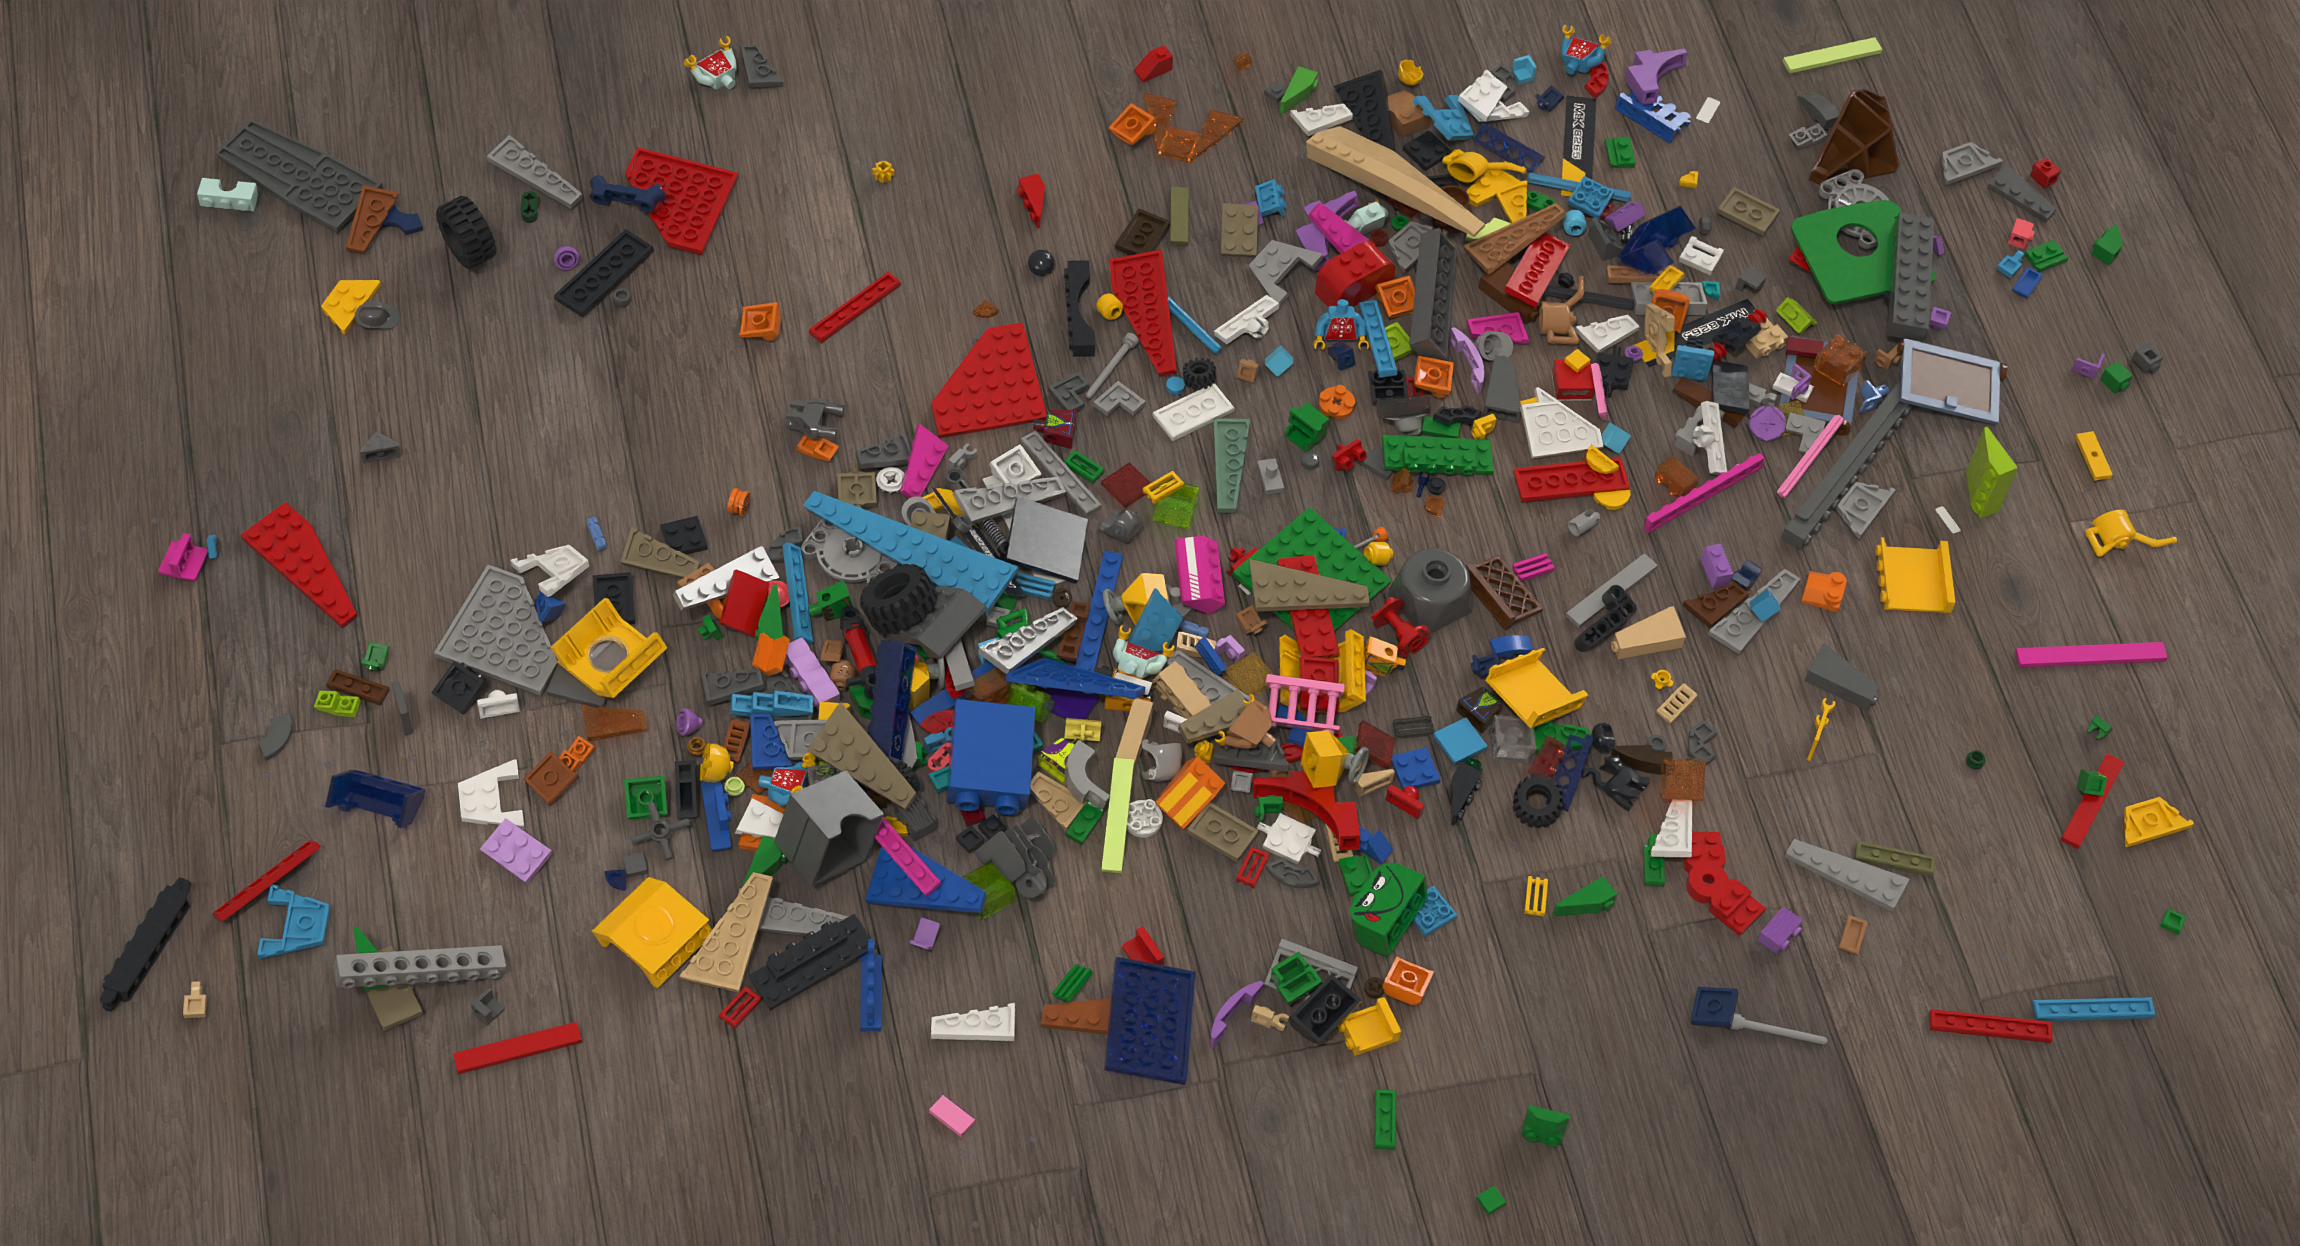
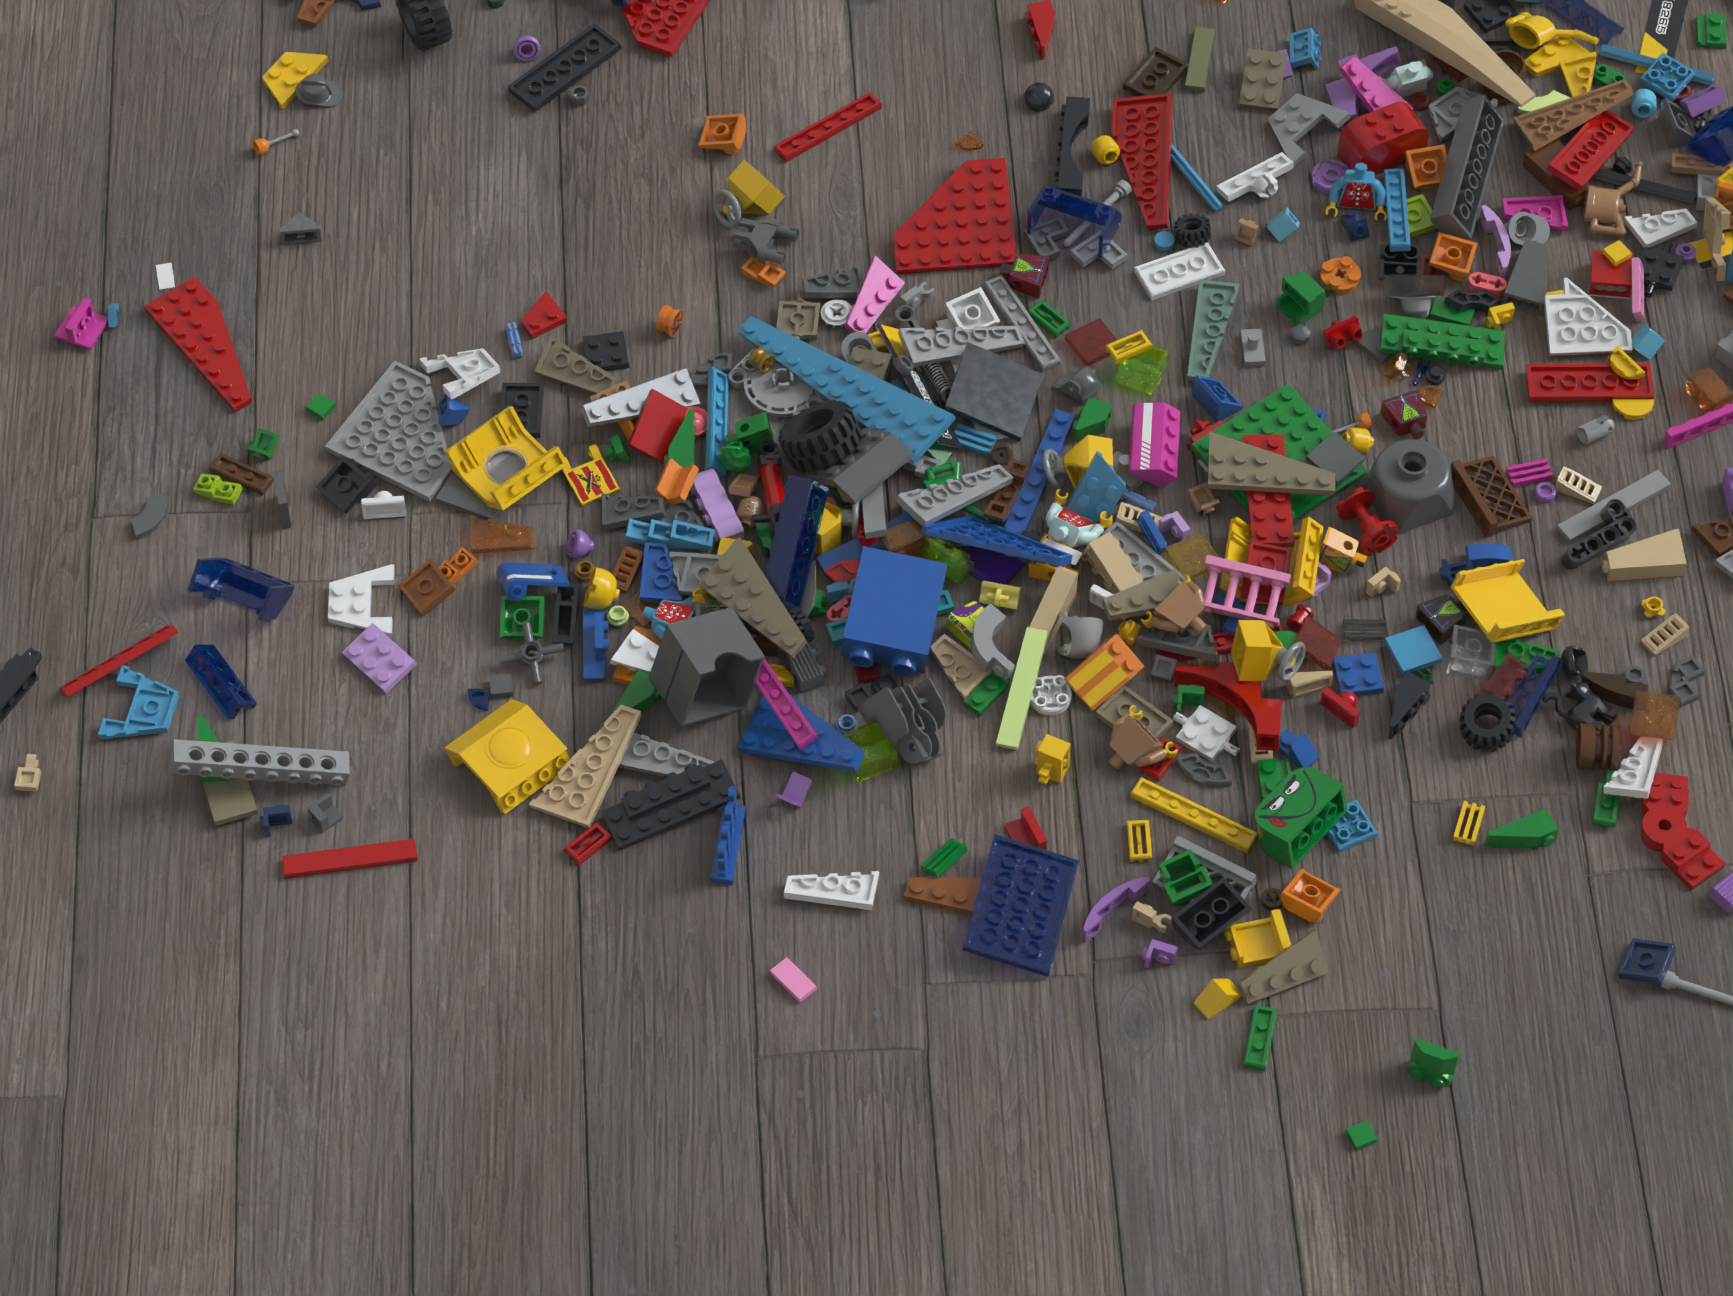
camera: 15 degrees right, 0 degrees up
(256, 503) = (165, 276): none -> white sticker
(331, 371) = (261, 146): none -> hinge
(365, 890) = (217, 680): none -> clear blue fence
(423, 615) = (321, 406): none -> green tile
(441, 1014) = (275, 816): none -> dark blue bracket
(620, 509) = (543, 317): none -> red wing
(637, 759) = (516, 576): none -> blue door
(689, 658) = (591, 479): none -> flag
(793, 377) = (748, 194): none -> yellow piece
(820, 625) = (735, 457): none -> green head
(831, 531) = (762, 360): none -> pearl gold wheel
(962, 862) = (846, 720): none -> medium blue plate
(1096, 362) = (1077, 207): none -> clear blue windscreen
(1140, 557) = (1093, 419): none -> green slope
(1156, 879) = (1052, 759): none -> yellow brick
(1229, 856) = (1136, 743): none -> medium nougat torso
(1245, 526) = (1215, 398): none -> blue slope
(1248, 961) = (1140, 856): none -> yellow tile
(1282, 1049) = (1159, 951): none -> medium lavender bracket
(1290, 916) = (1194, 815): none -> yellow tile
(1310, 311) = (1326, 174): none -> medium lavender tile
(1340, 1086) = (1217, 997): none -> yellow slope
(1355, 718) = (1301, 612): none -> red bush
(1362, 570) = (1335, 456): none -> dark grey tile
(1403, 1050) = (1295, 965): none -> dark tan wing
(1416, 524) = (1405, 414): none -> dark red torso
(1423, 679) = (1382, 580): none -> tan bracket
(1466, 397) = (1488, 283): none -> coral beam
(1550, 584) = (1545, 492): none -> medium lavender tile
(1576, 580) = (1574, 477): none -> tan slope
(1638, 814) = (1597, 746): none -> reddish brown wheel

